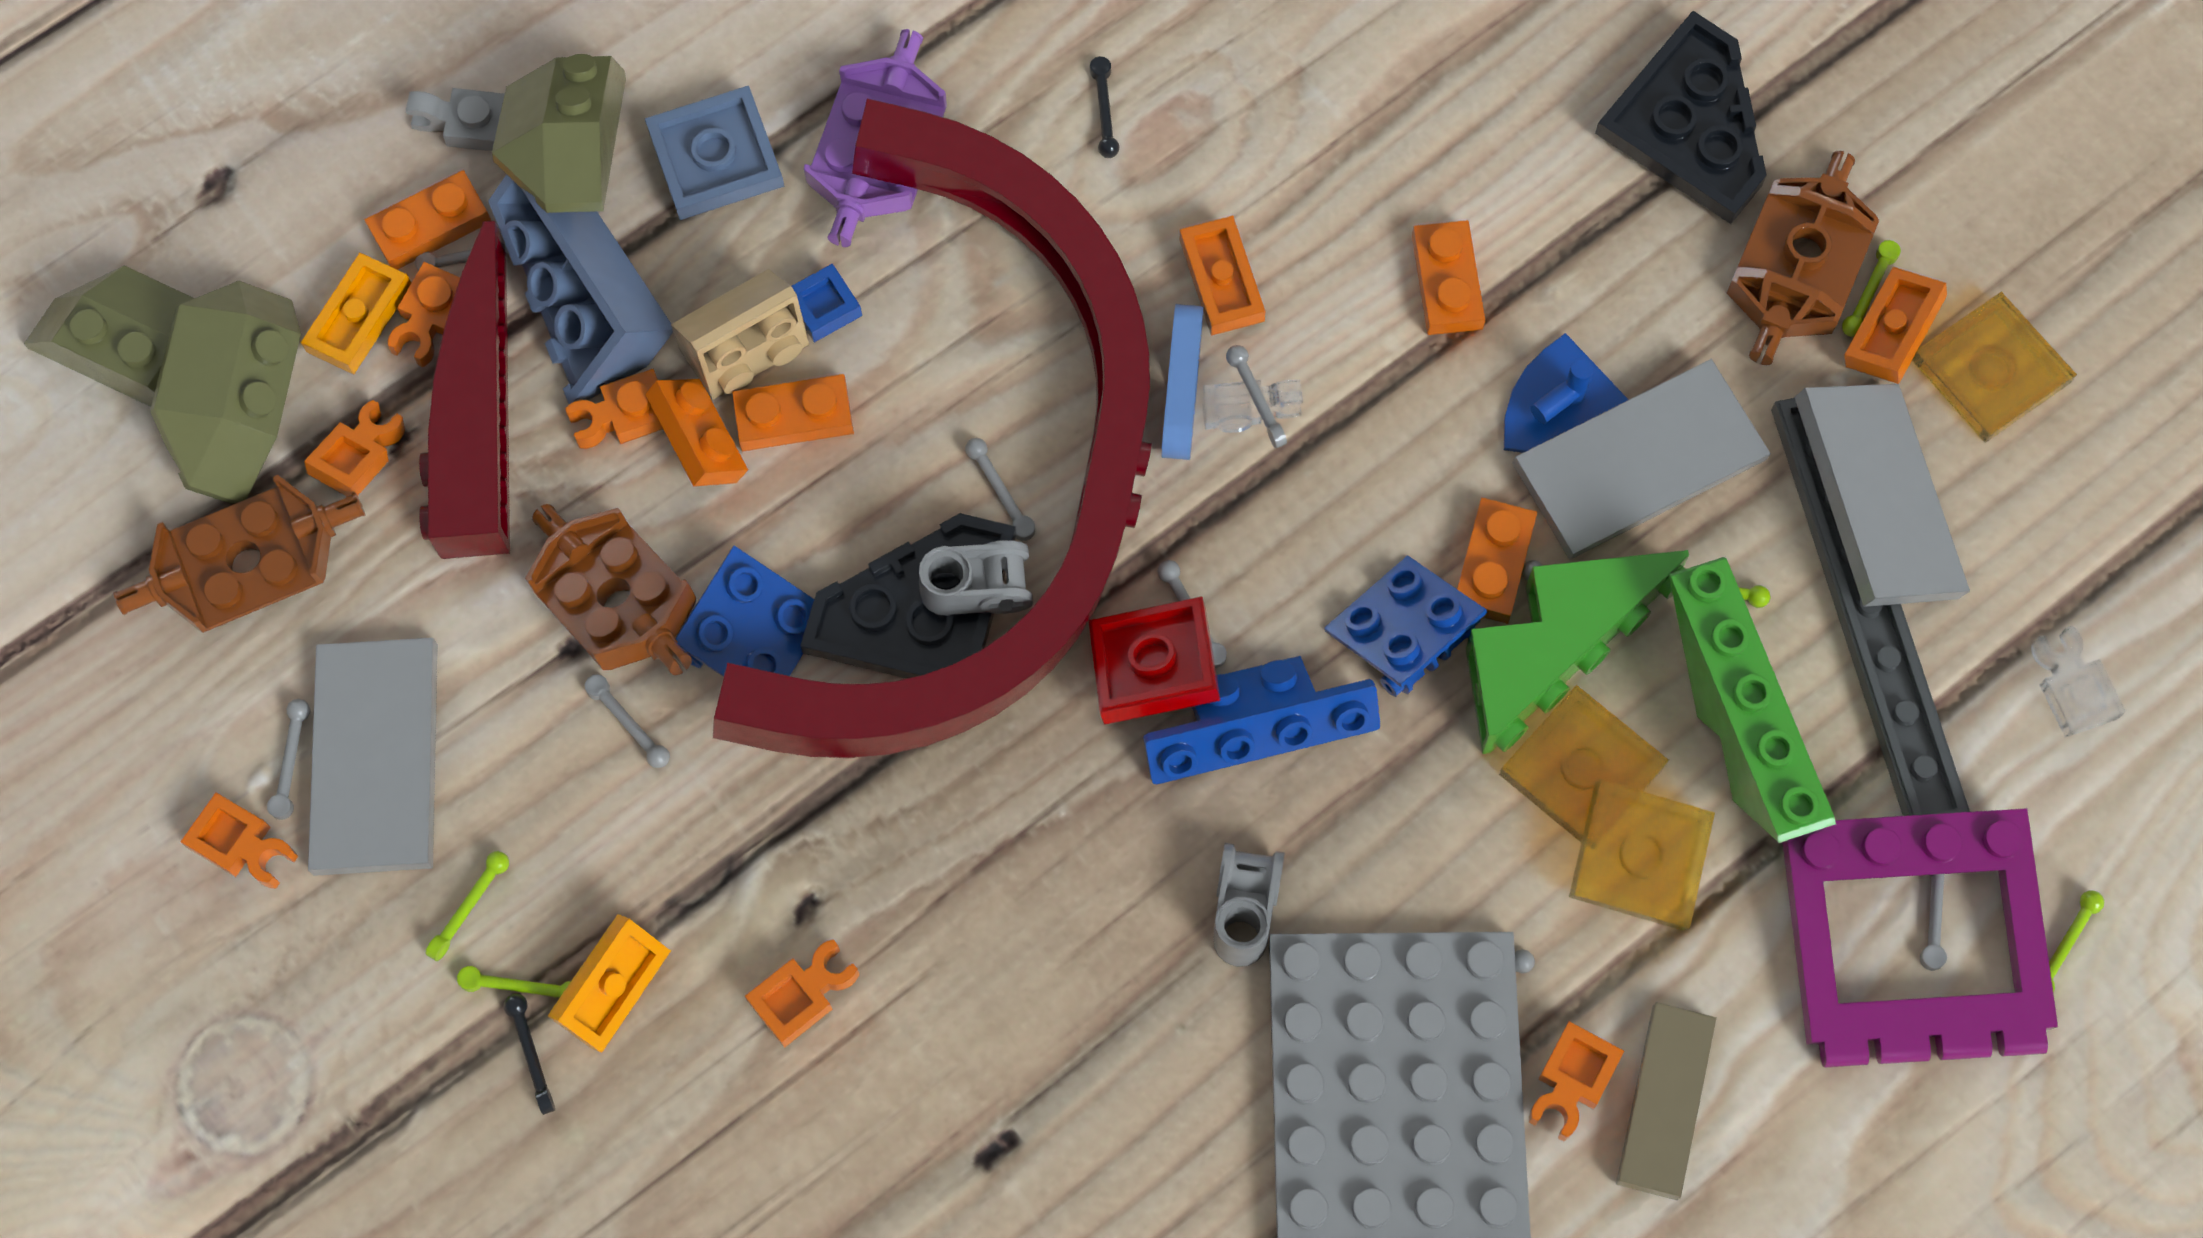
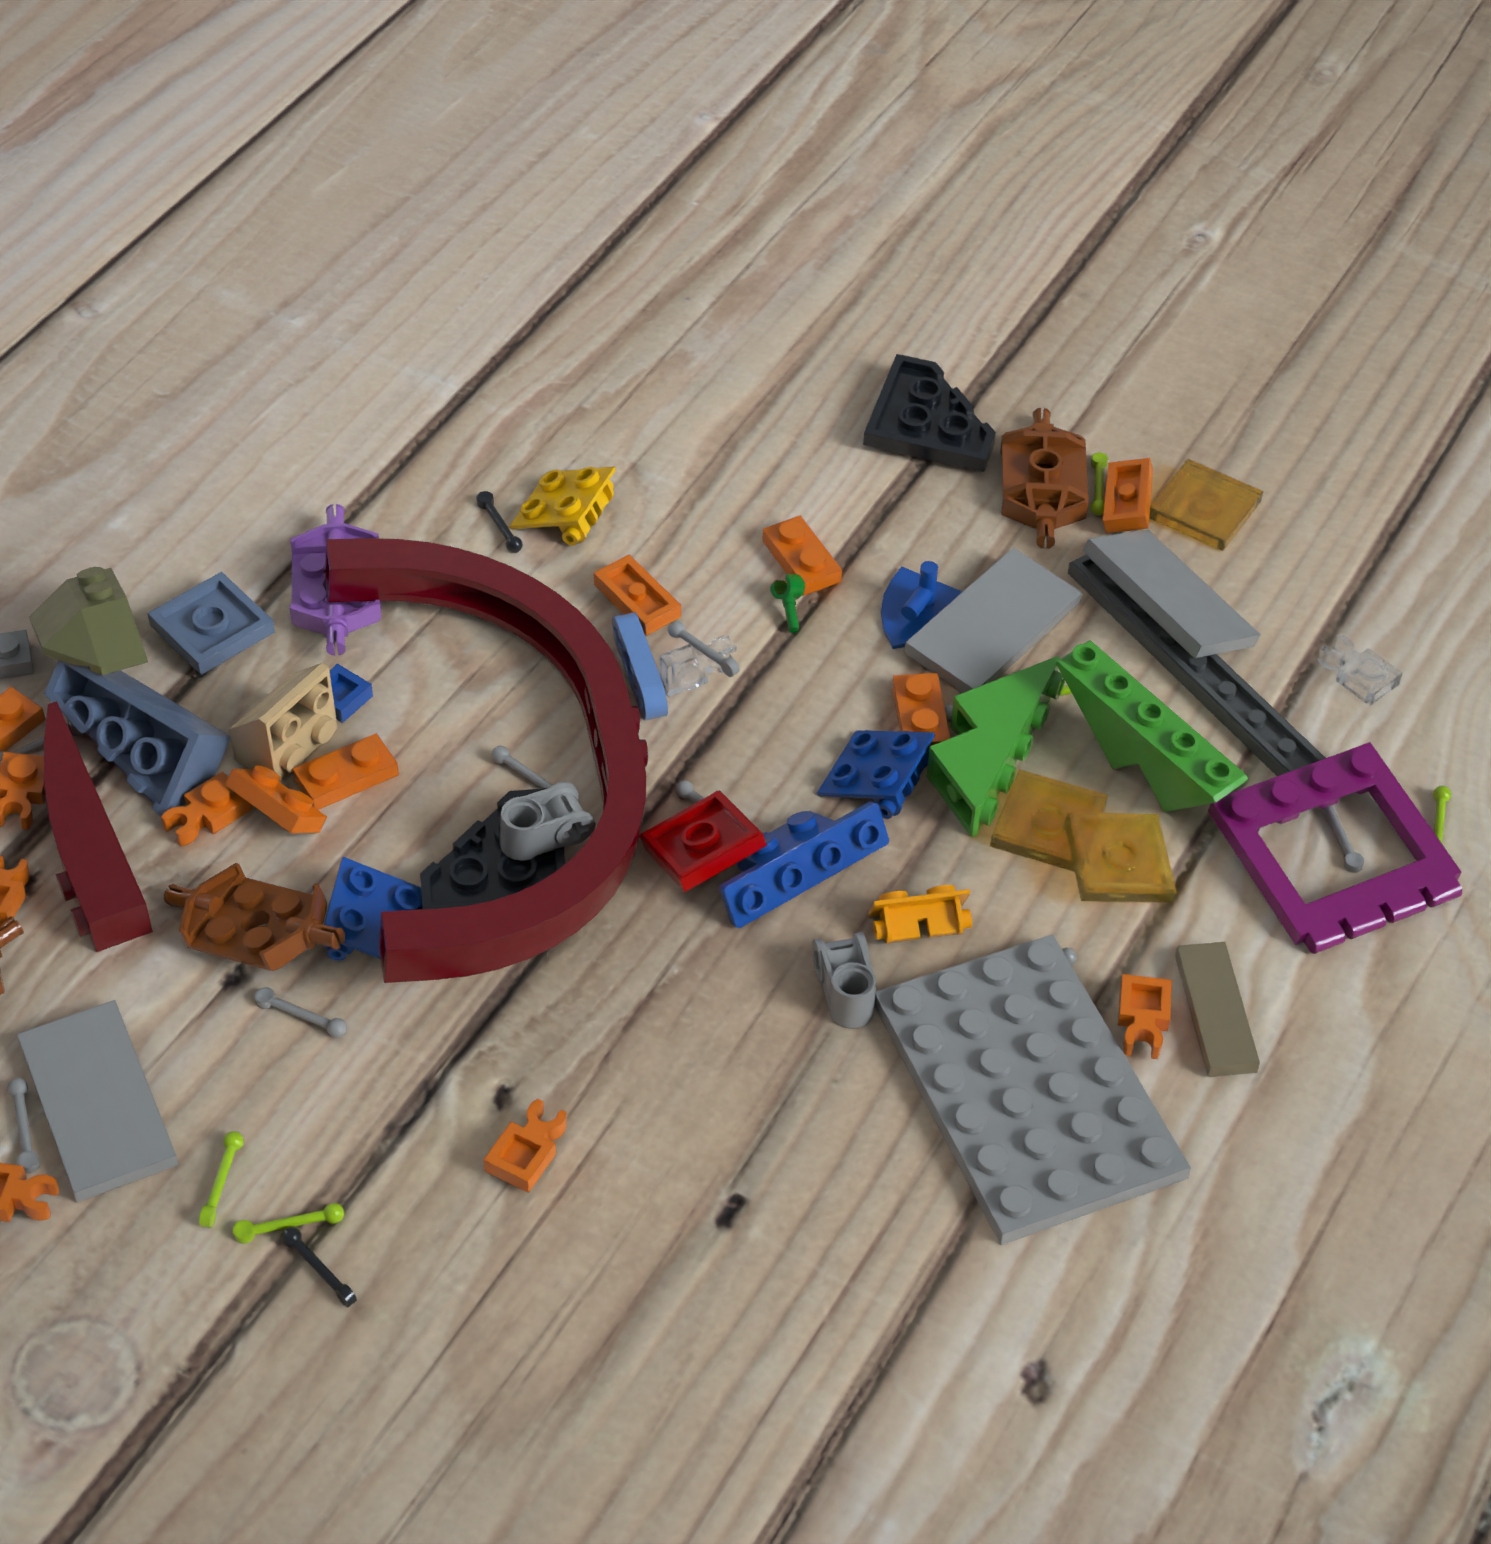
camera: 25 degrees left, 20 degrees down
(609, 983) = (366, 1189): light orange plate -> none
(1192, 108) = (569, 501): none -> yellow hinge
(1393, 849) = (938, 907): none -> light orange hinge
(1403, 327) = (789, 593): none -> green hand

